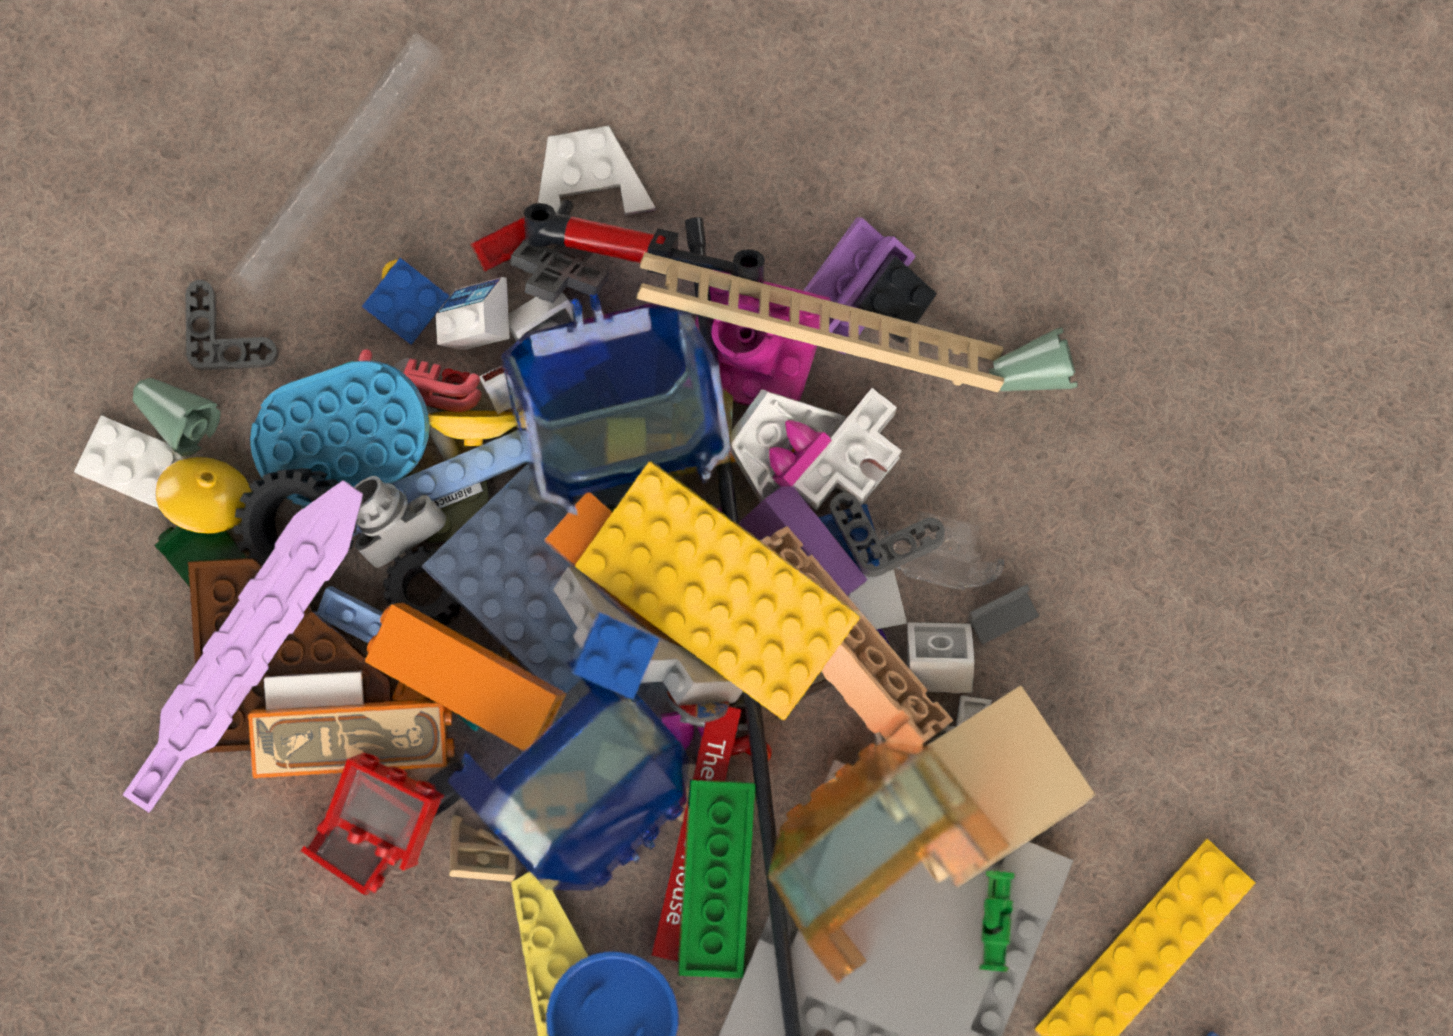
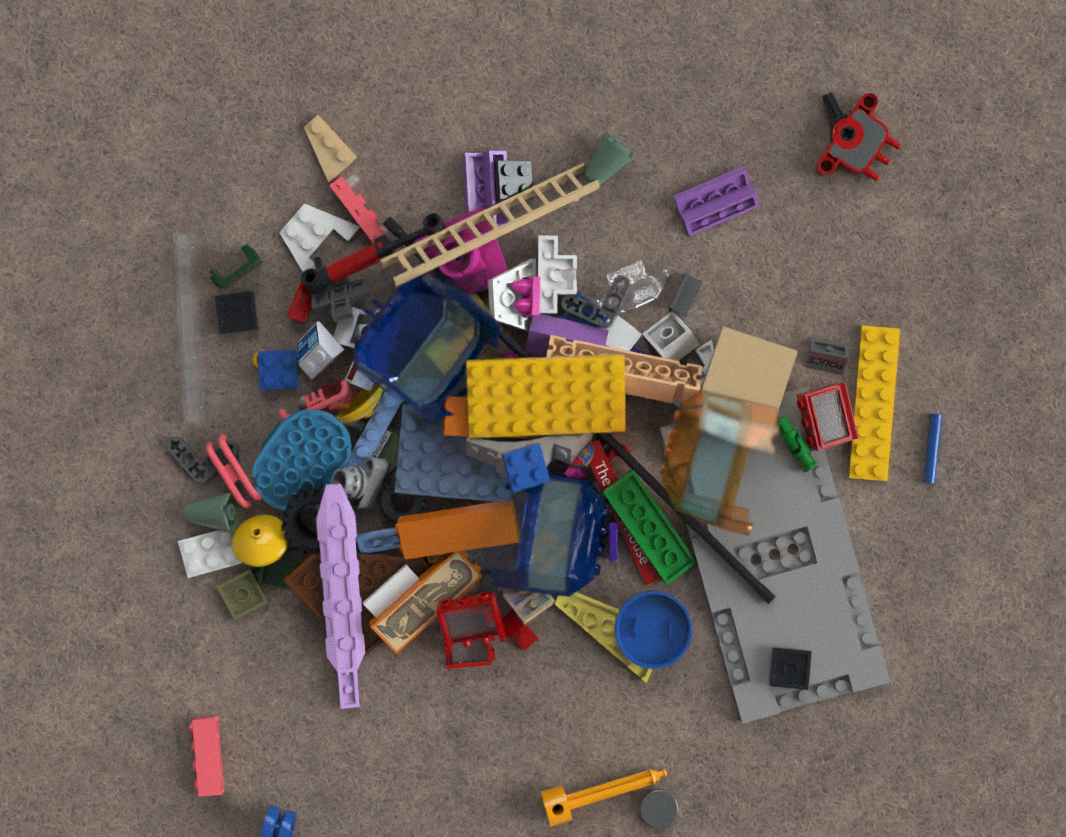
camera: 40 degrees left, 10 degrees up
(124, 547) = (242, 594): none -> olive plate
(240, 382) = (231, 472): none -> coral piece
(413, 192) = (236, 312): none -> black plate
(434, 880) = (518, 631): none -> red slope
(459, 144) = (254, 262): none -> dark green panel
(653, 857) = (612, 541): none -> dark purple tile
(670, 176) = (356, 207): none -> coral piece
(694, 85) = (329, 148): none -> tan wing
(1067, 920) = (827, 416): none -> window
(1129, 843) = (827, 356): none -> dark grey panel
(1138, 527) = (716, 201): none -> medium lavender slope
(1394, 601) = (864, 142): none -> piece

